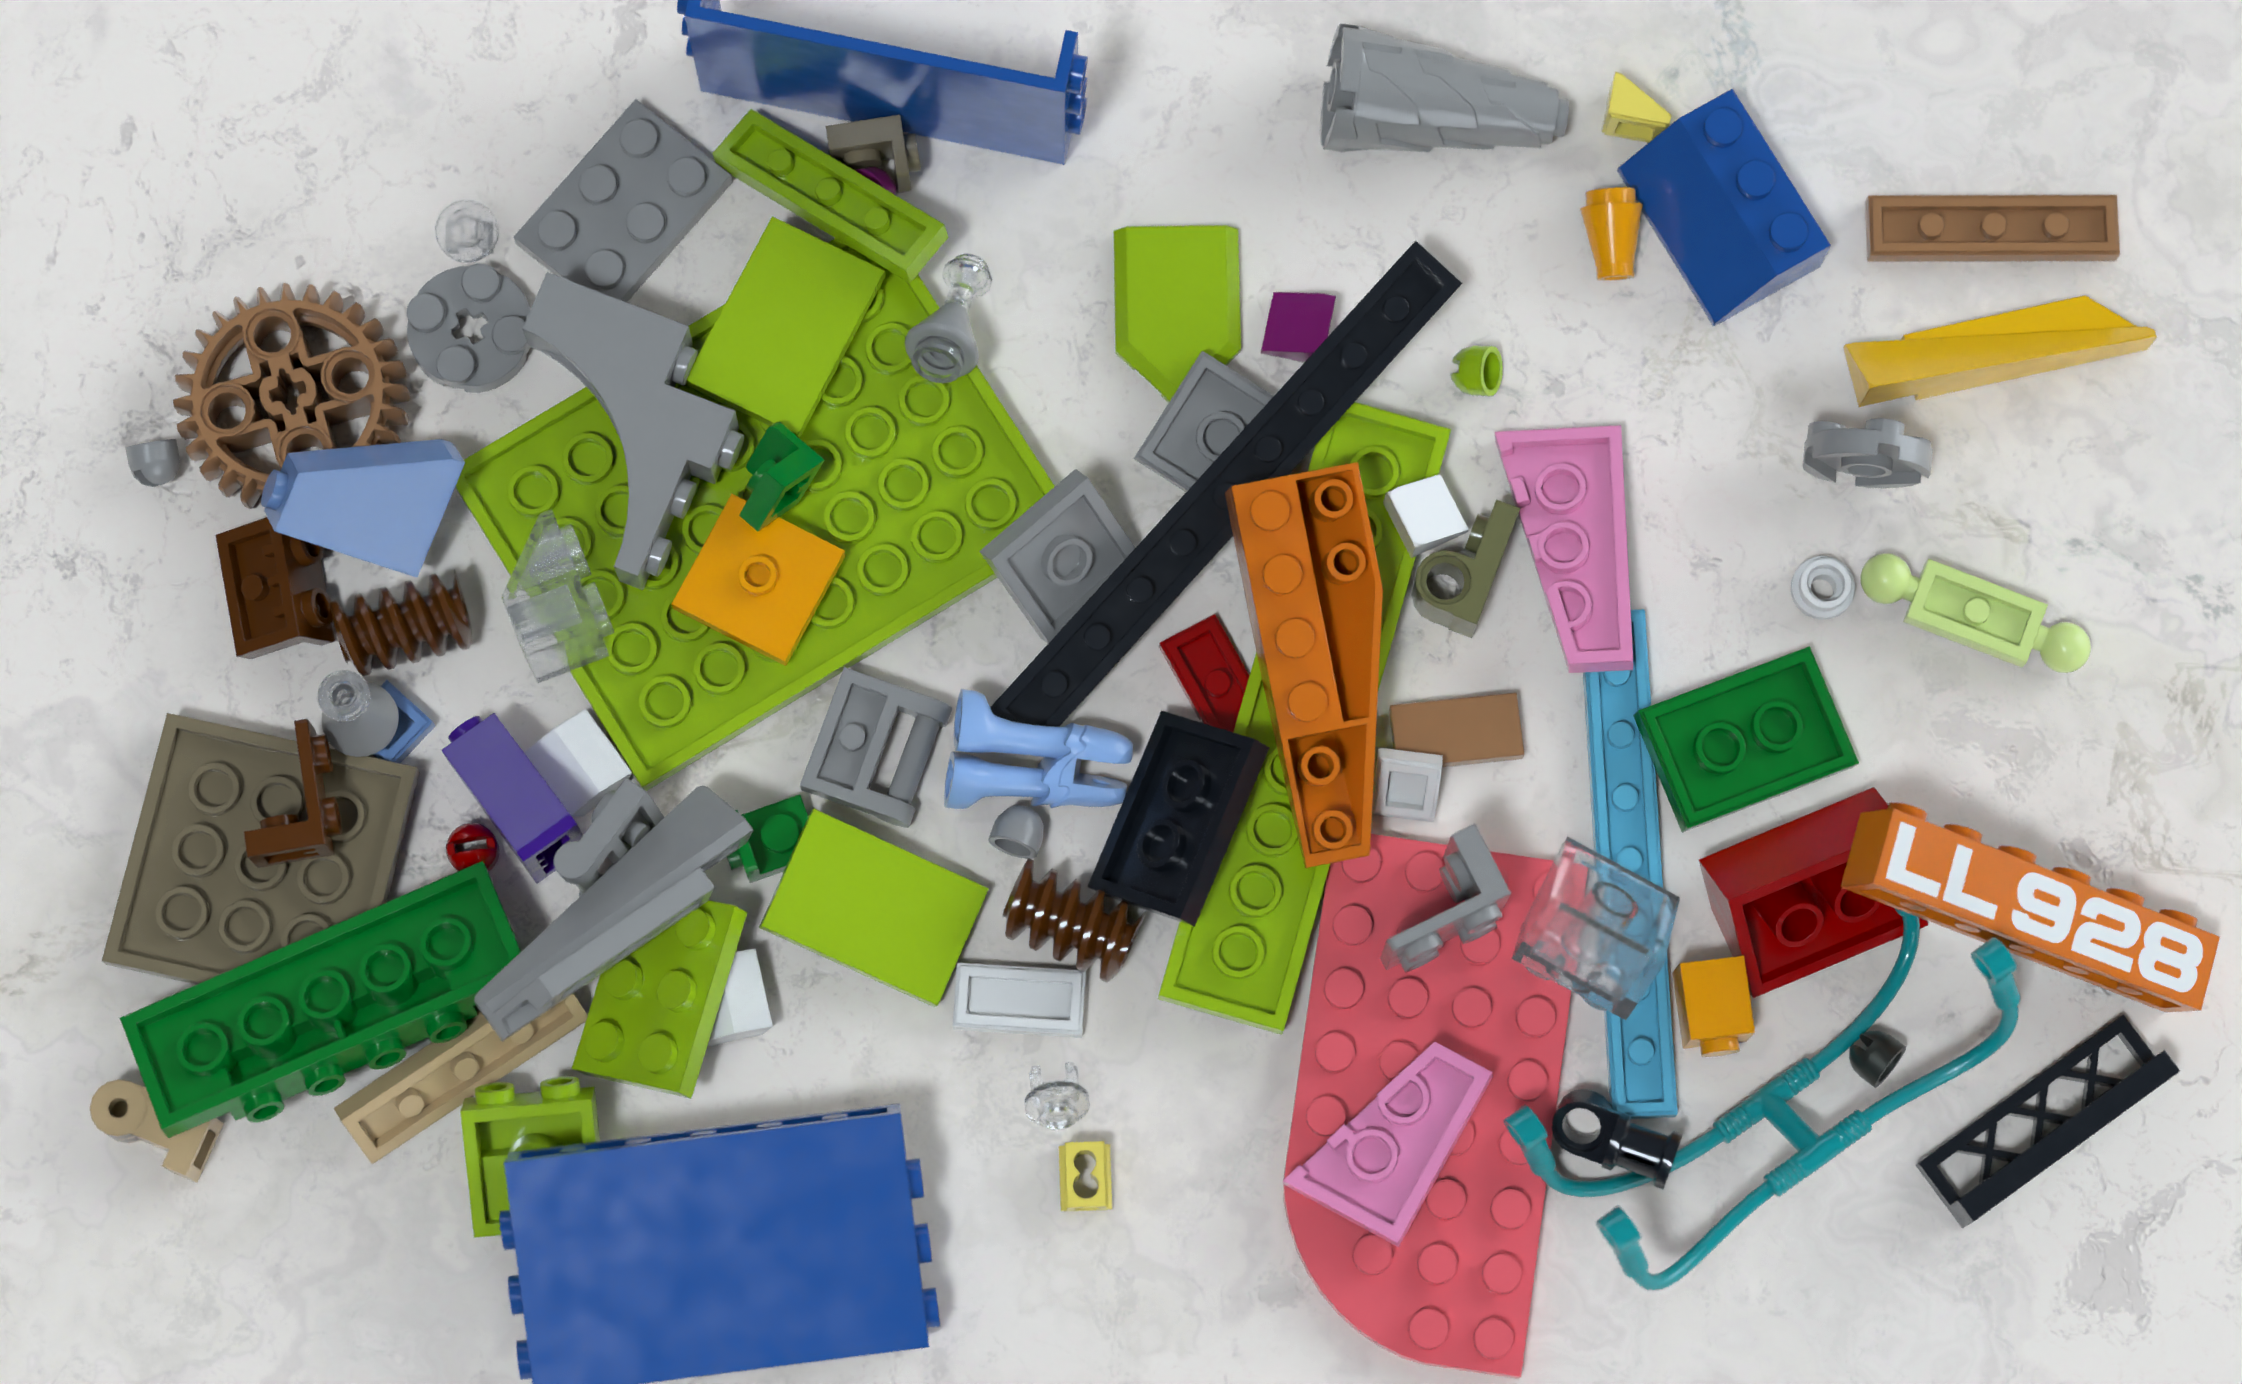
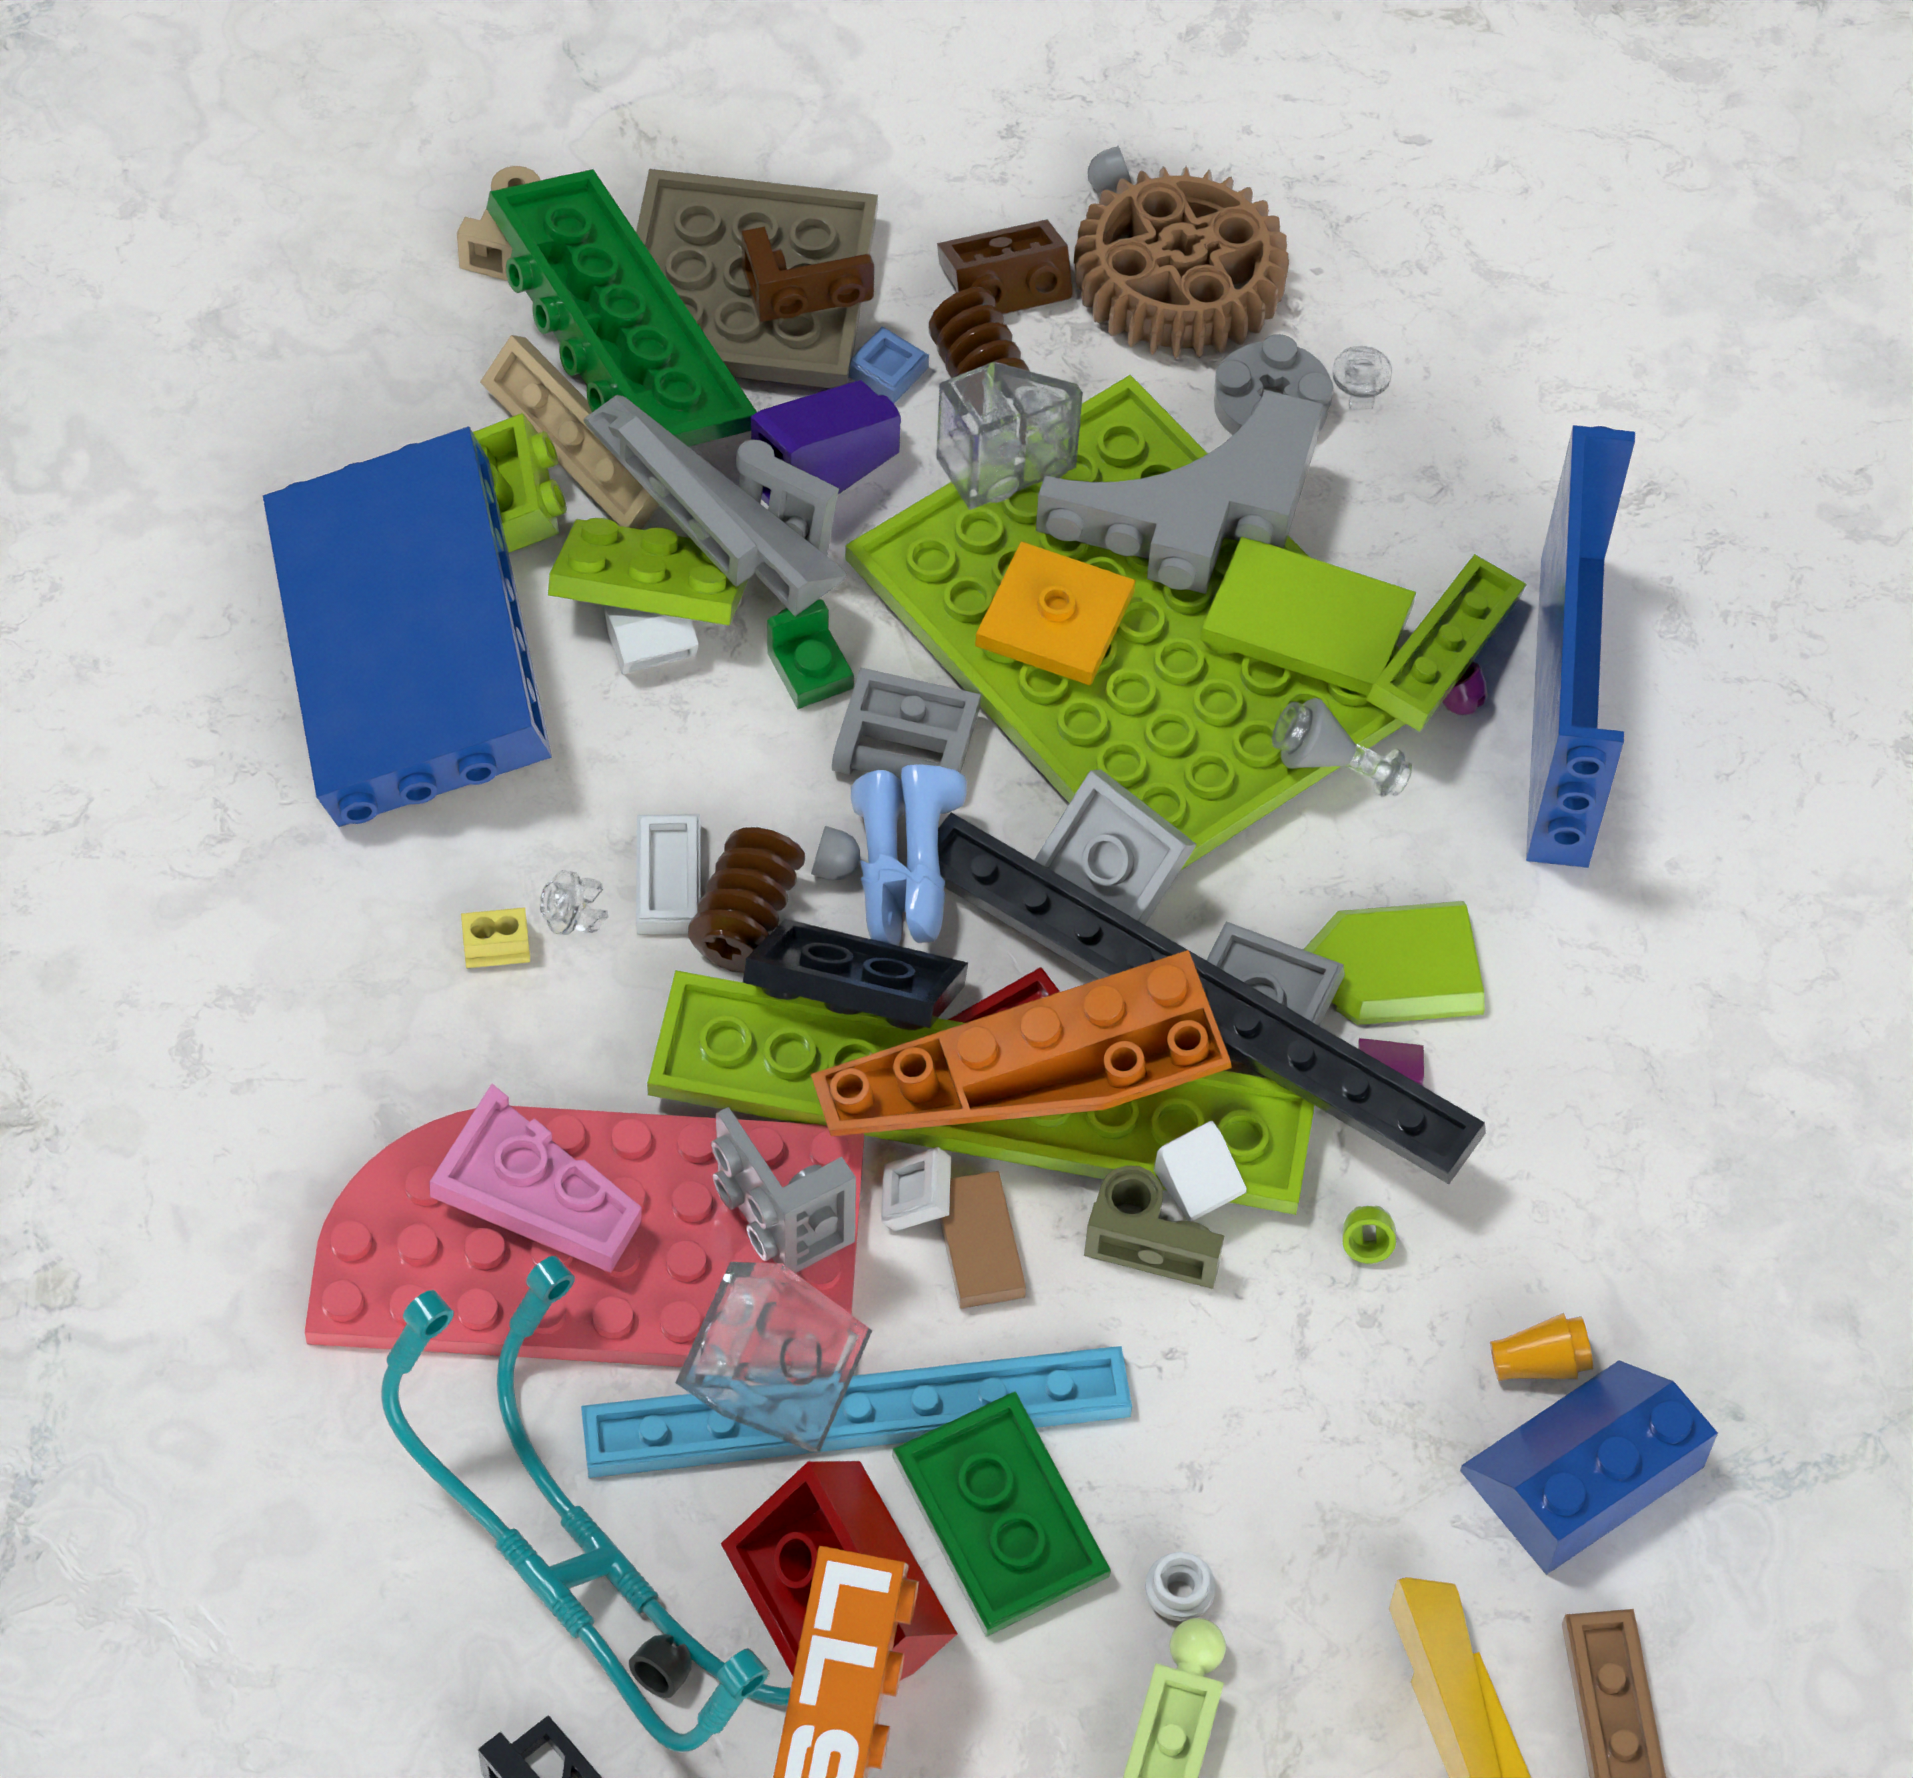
camera: 85 degrees right, 20 degrees down
(356, 714) = (886, 320): piece -> none
(366, 499) = (1085, 299): medium blue slope -> none
(578, 763) = (867, 497): white piece -> none
(624, 206) = (1409, 500): light grey plate -> none
(780, 475) = (1147, 610): green bracket -> none
(873, 140) = (1510, 686): dark tan bracket -> none
(874, 908) = (746, 736): lime tile -> none
(1422, 98) = (1648, 1147): light grey cone -> none
(1577, 535) = (1215, 1329): bright pink wing -> none
(1618, 1140) = (552, 1402): black connector -> none
(1632, 112) = (1682, 1349): light yellow slope -> none
(1713, 1005) = (704, 1490): light orange brick -> none
(1875, 455) = (1330, 1594): light grey plate -> none

